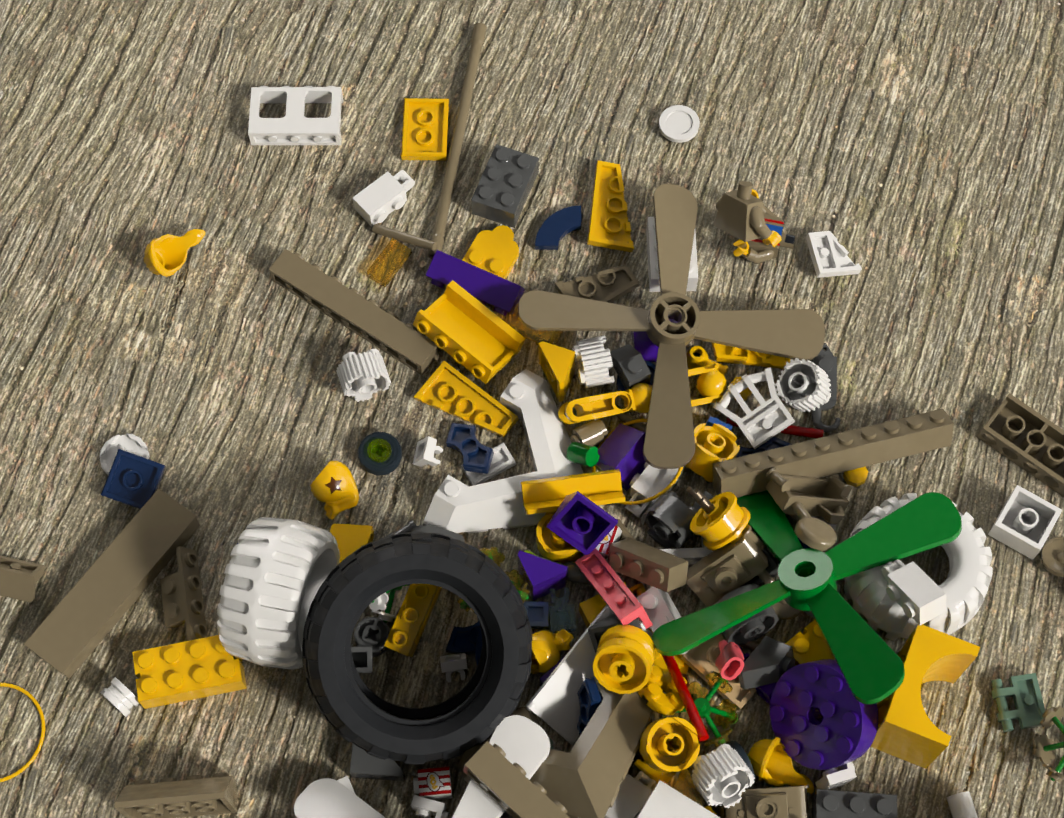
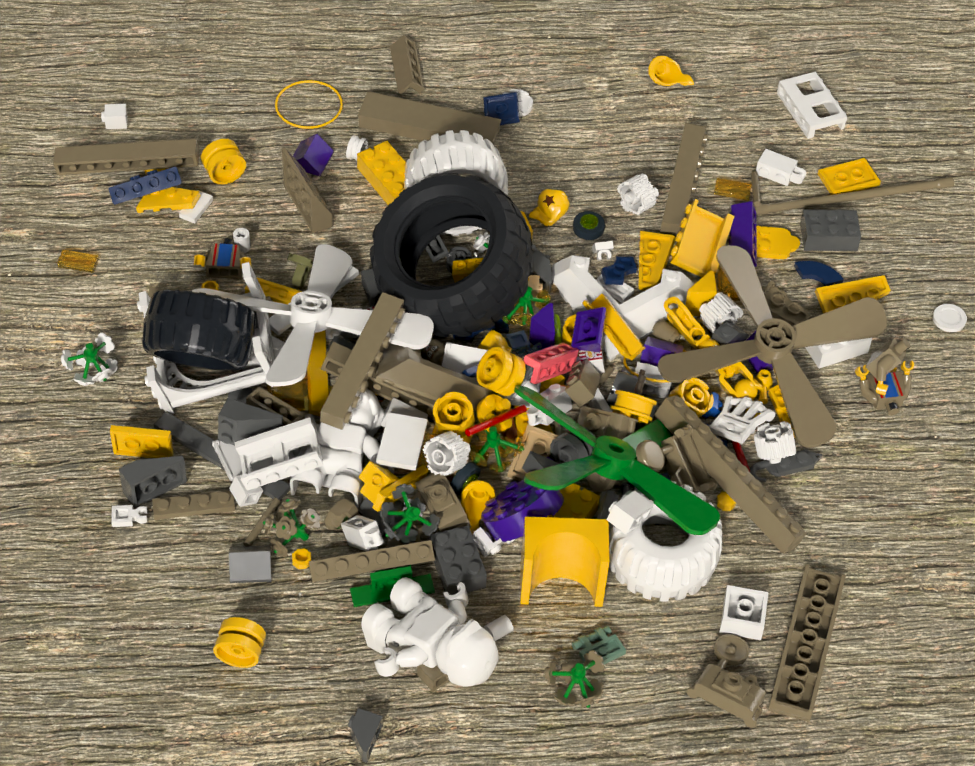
camera: 65 degrees right, 15 degrees down
(97, 765) = (313, 154): none -> dark purple slope
(583, 454) = (647, 328): green piece -> none
(730, 660) = (534, 443): coral piece -> none
(829, 256) = (896, 438): white wing -> none

